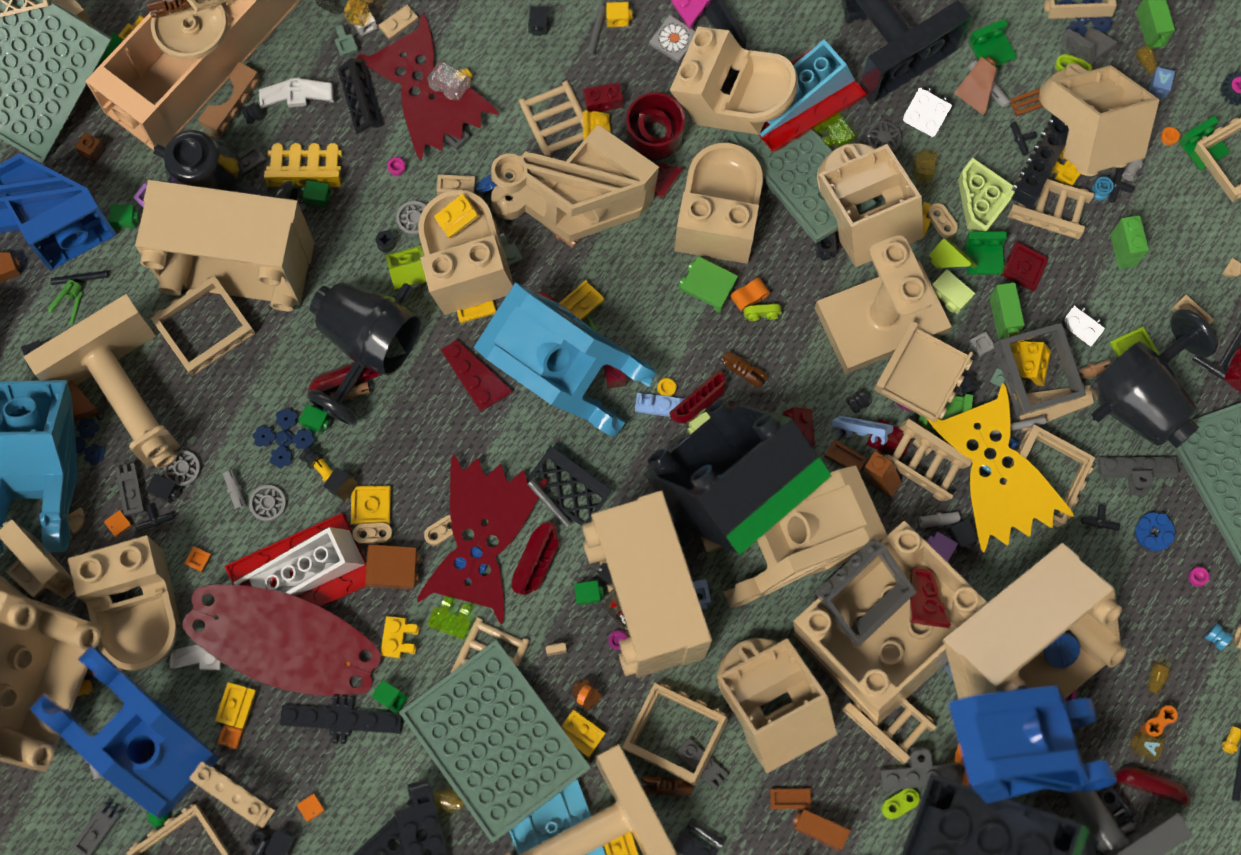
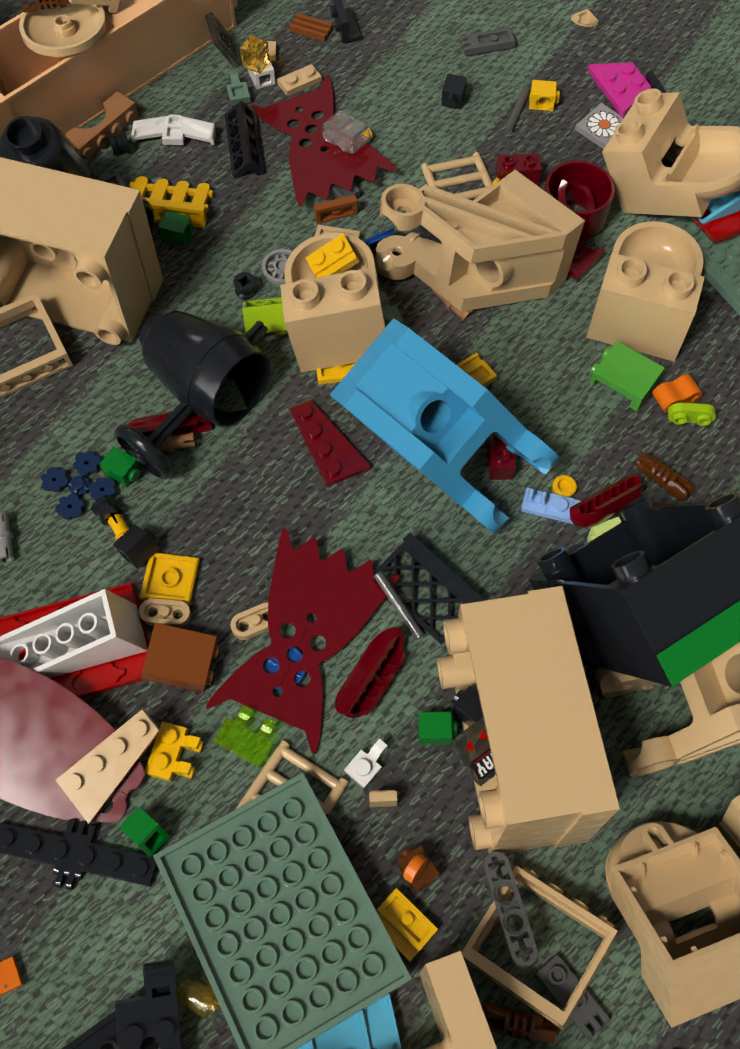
camera: 10 degrees right, 10 degrees down
(267, 503) = (41, 559): light grey wheel -> none
(351, 657) = (100, 772): none -> tan wing
(396, 166) = (272, 213): dark pink tile -> none
(450, 157) = (335, 209): none -> dark orange tile
(539, 627) = (365, 766): none -> white plate
(615, 637) = (468, 798): magenta tile -> none
(649, 714) = (511, 908): none -> dark grey beam

